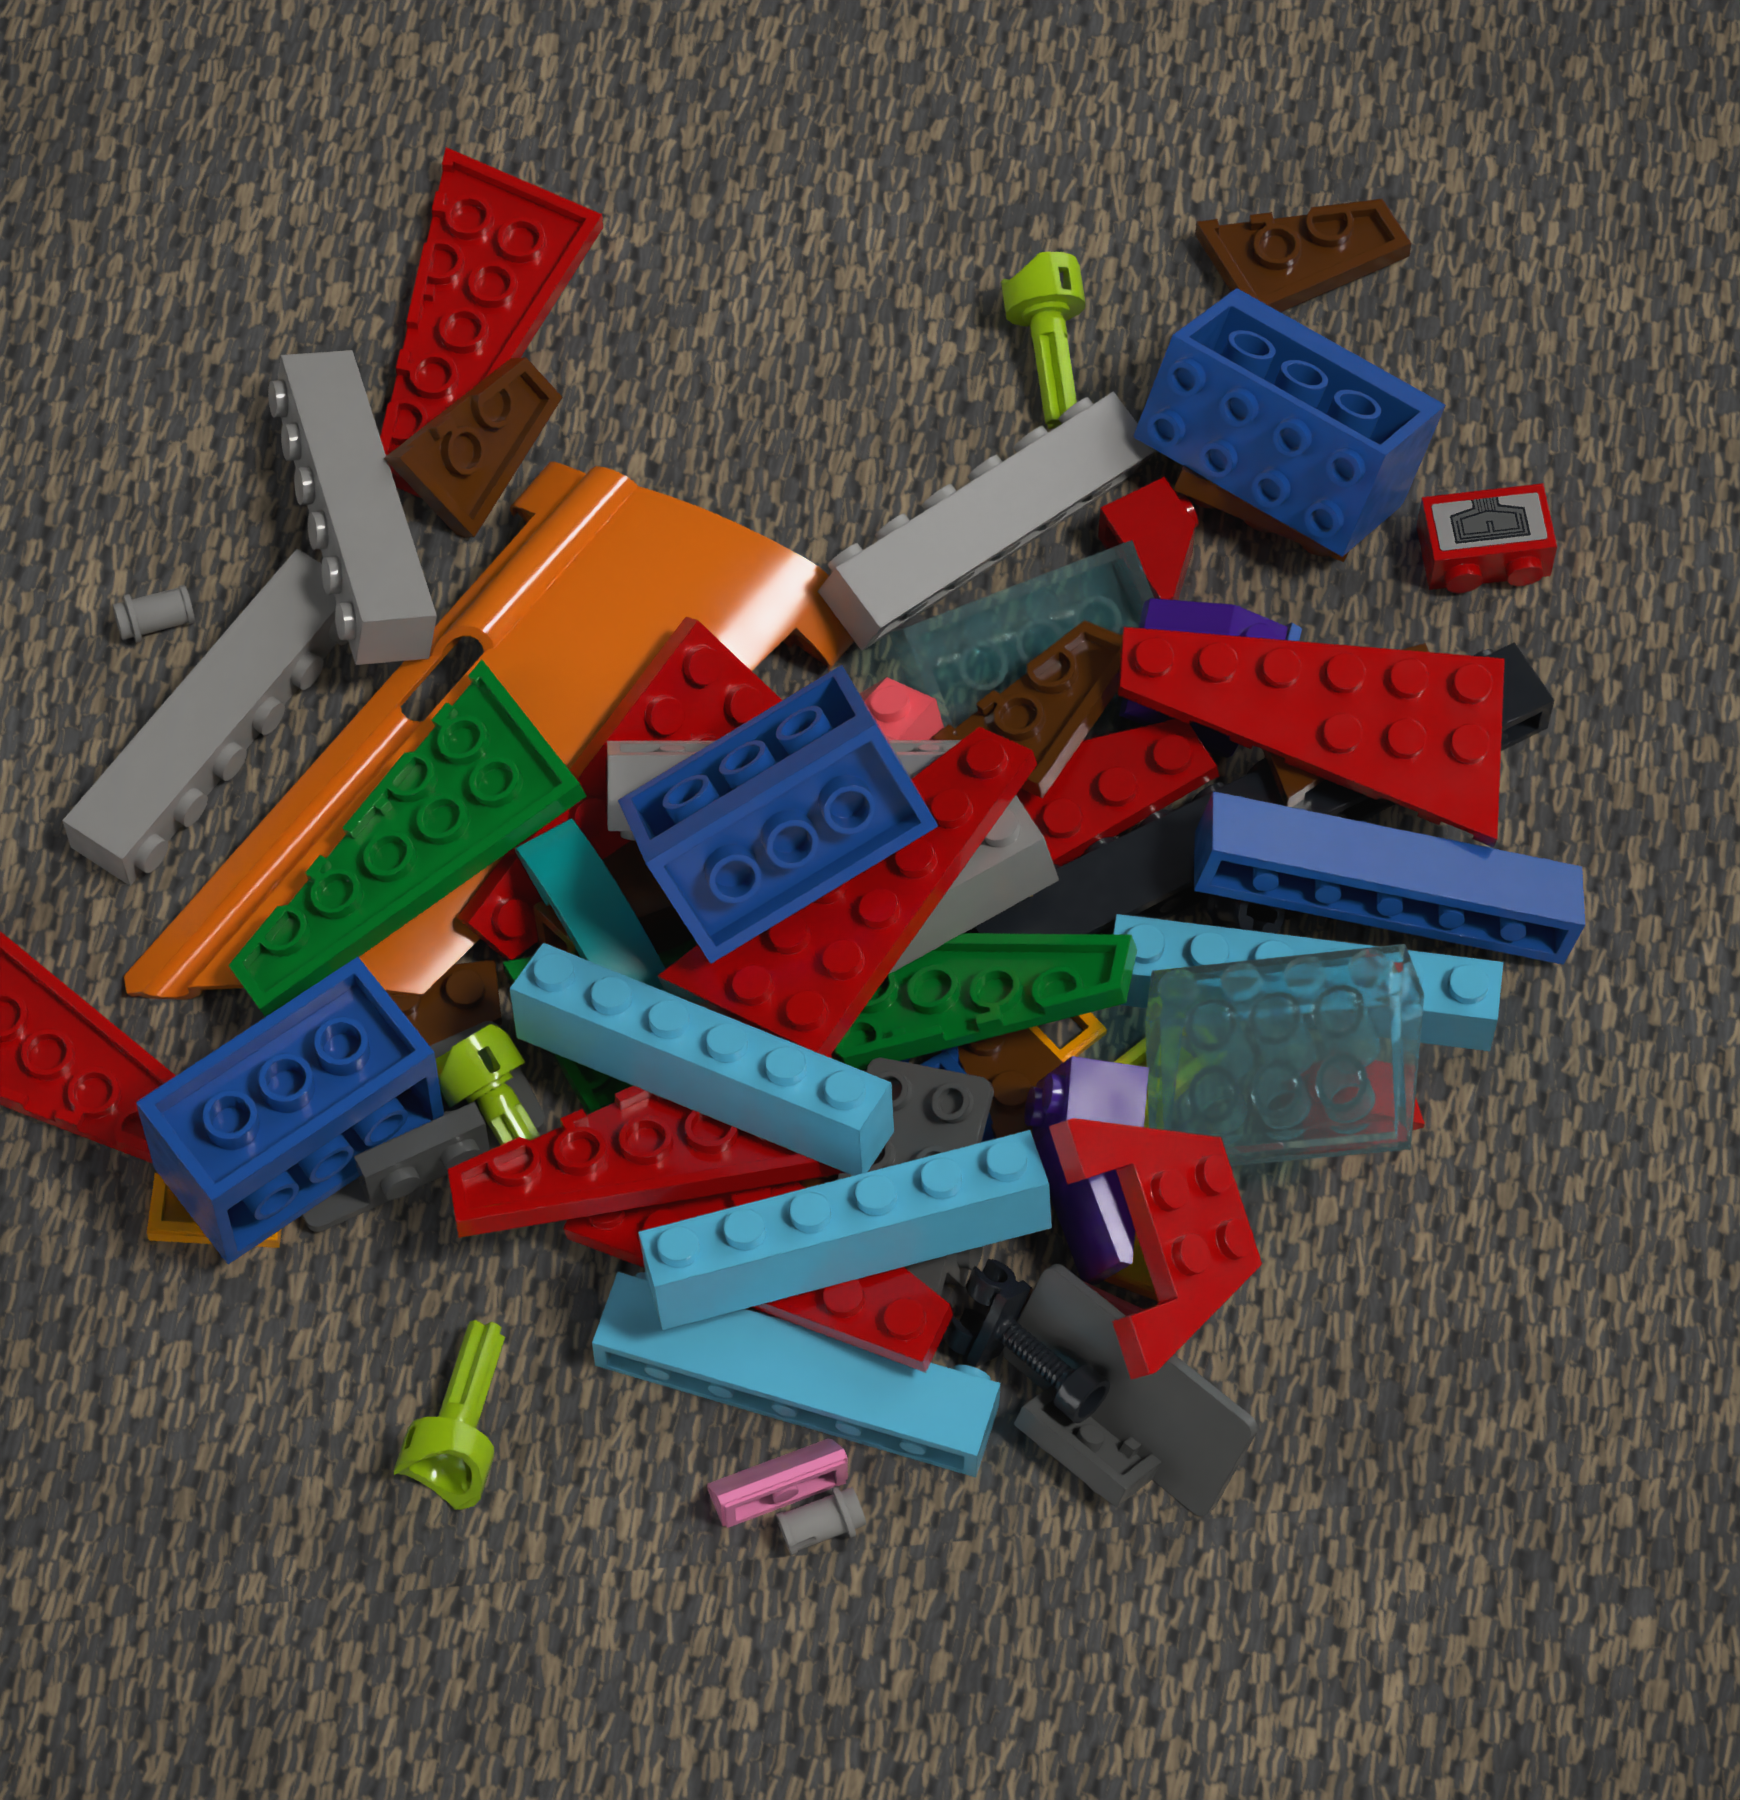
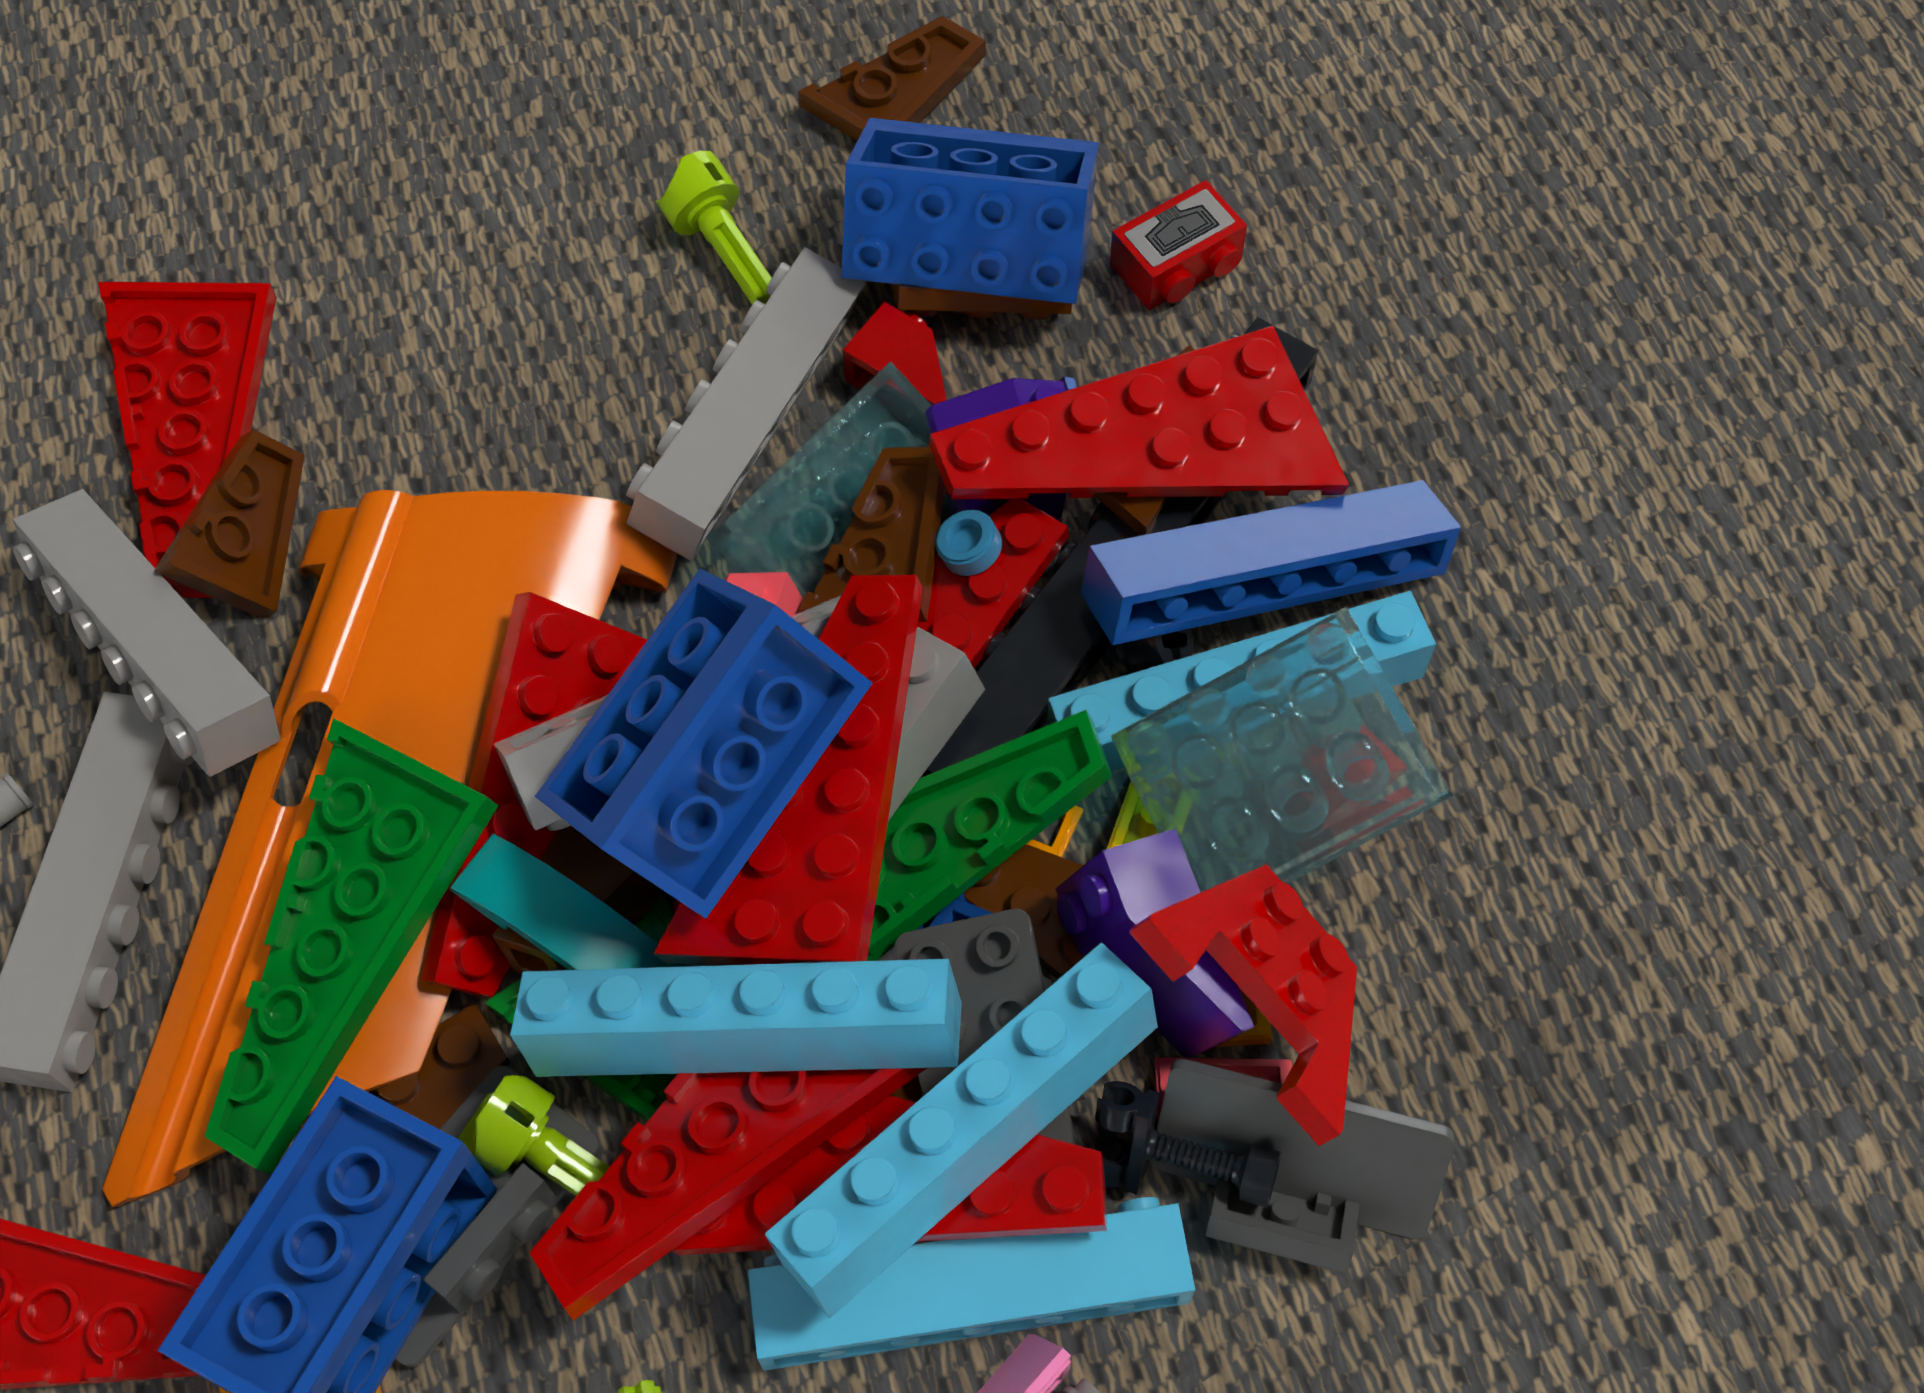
camera: 25 degrees left, 0 degrees up
(1116, 742) = (968, 542): none -> dark azure tile

